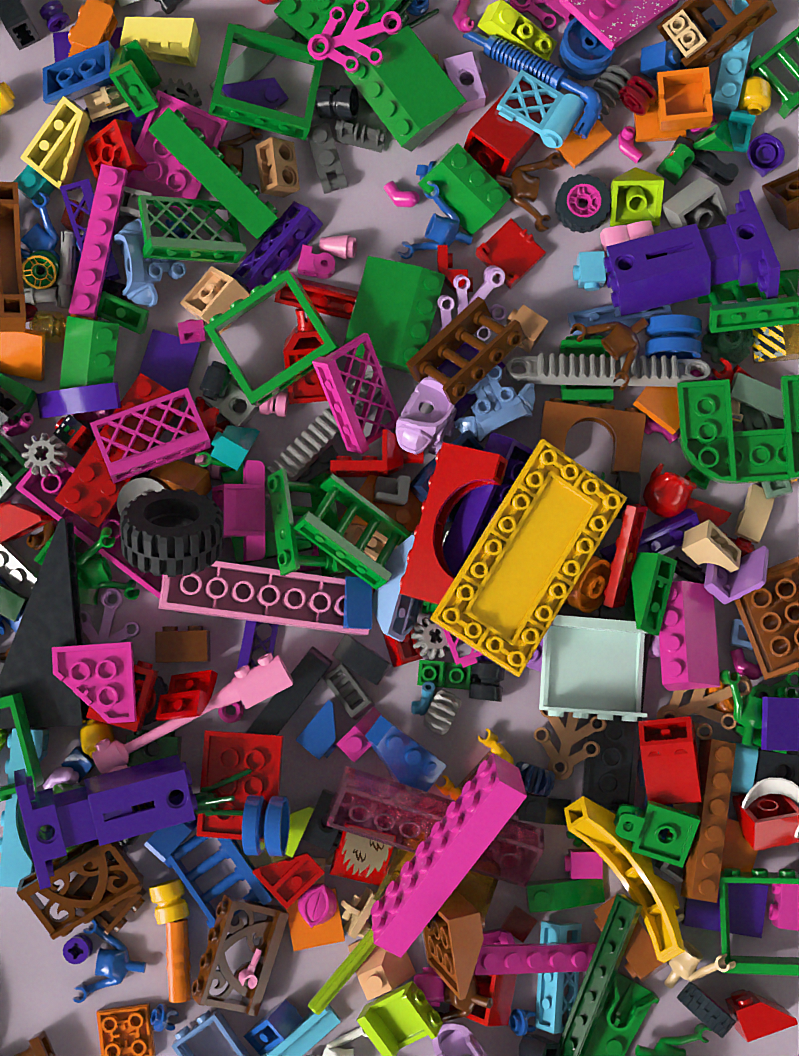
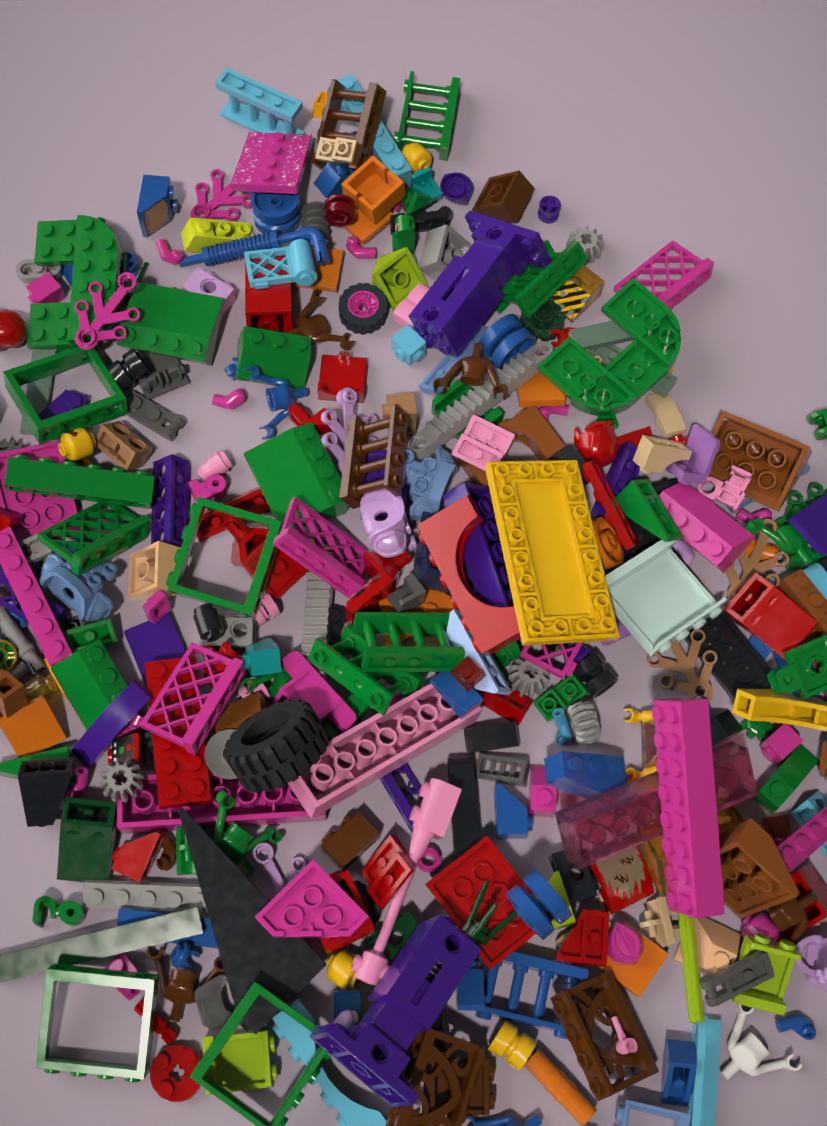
camera: 50 degrees left, 15 degrees down
(239, 137) = (77, 444): none -> yellow head
(372, 1007) = (737, 978): none -> dark grey plate
(377, 599) = (467, 673): none -> clear red plate
(569, 414) = (483, 443): none -> bright pink slope
(742, 628) = (731, 491): none -> bright pink piece

